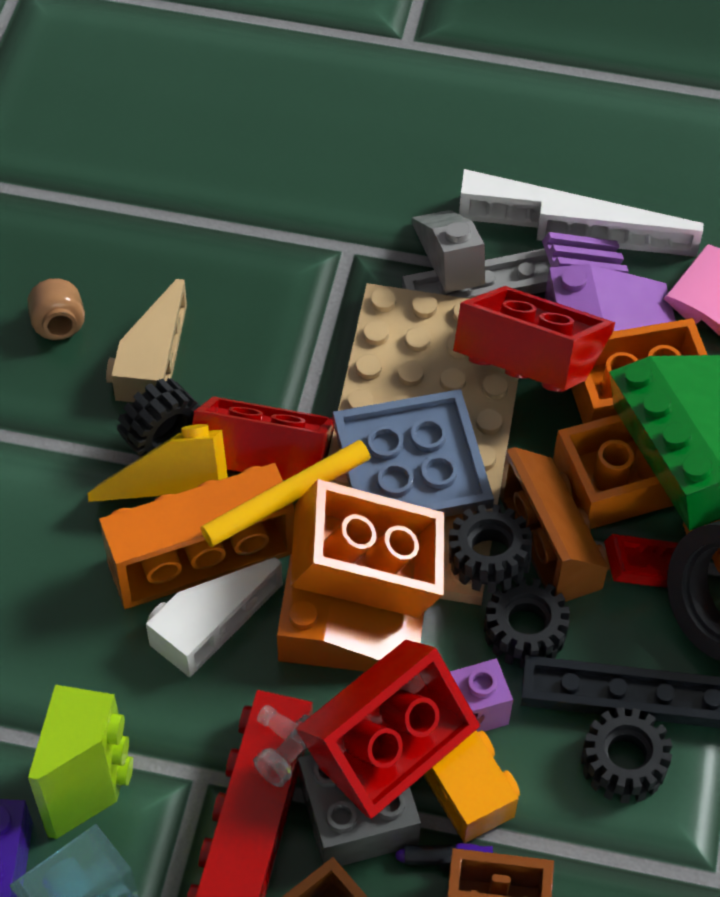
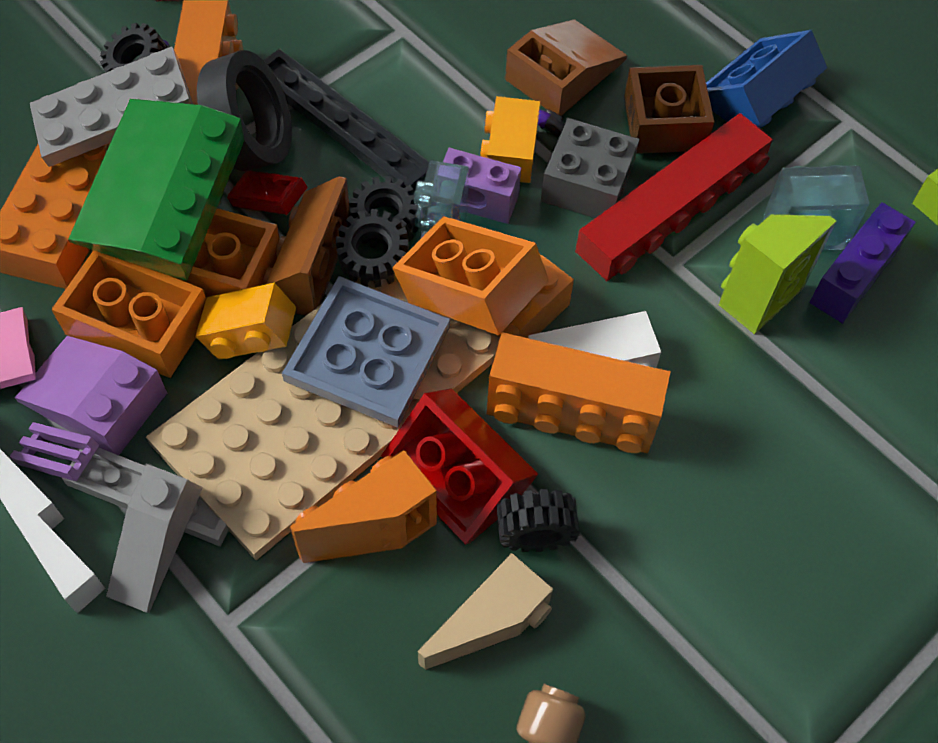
camera: 145 degrees left, 5 degrees up
(169, 468) = (559, 462): yellow slope -> none
(276, 763) = (637, 194): clear piece -> none
(284, 493) = (503, 335): yellow piece -> none
(294, 343) = (369, 515): none -> orange slope
(389, 726) = (554, 158): red slope -> none
(465, 629) = (441, 194): none -> clear light blue brick
(531, 337) = (187, 366): red slope -> none
(532, 418) = (246, 321): none -> light orange brick
(633, 730) = (399, 89): black tyre -> none

